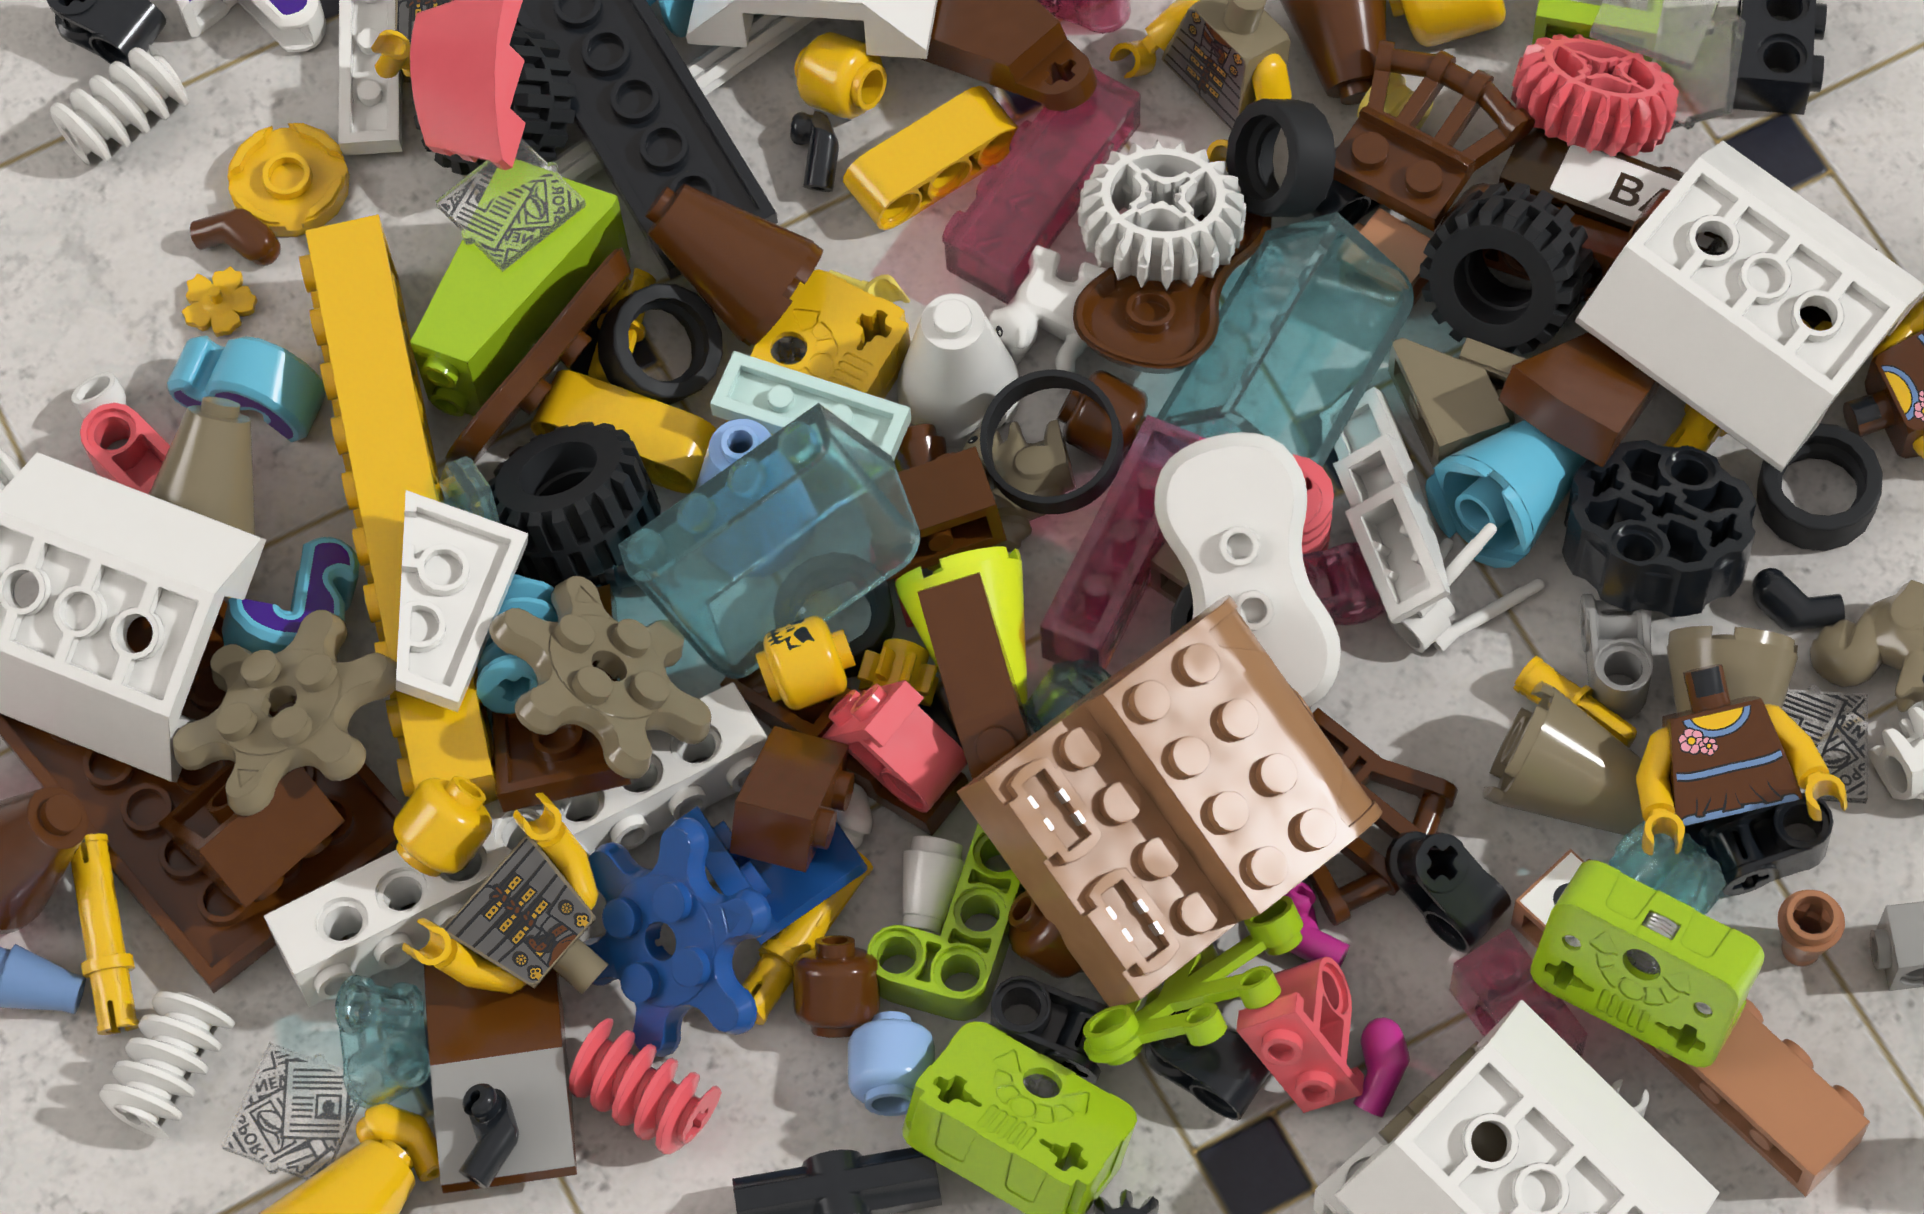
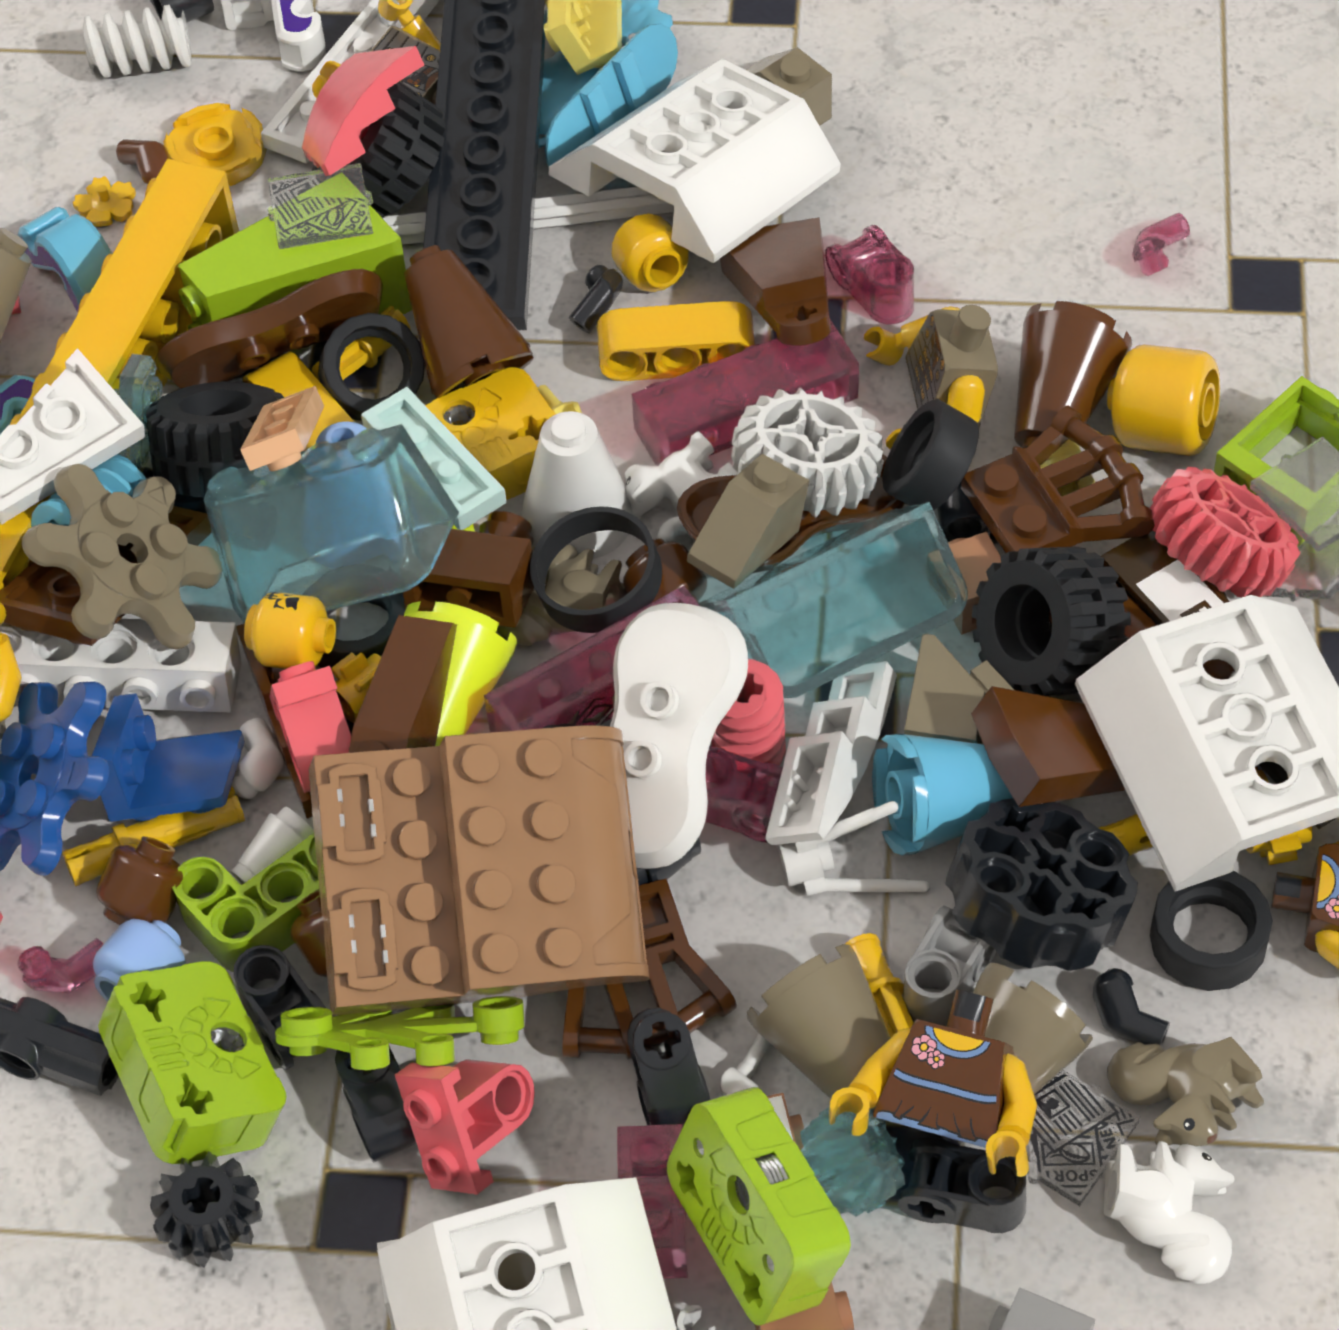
camera: 30 degrees right, 10 degrees down
(689, 466) = (282, 430): none -> light nougat plate
(791, 799) = (198, 719): reddish brown brick -> none
(815, 1115) = (58, 974): none -> clear pink arm
(1173, 318) = (750, 521): none -> dark tan slope
(1314, 943) = (535, 1043): dark pink arm -> none
(1385, 1061) = (523, 1175): dark pink arm -> none
(1511, 867) = (739, 1079): none -> white hand
(1809, 925) = (941, 1267): nougat cone -> none

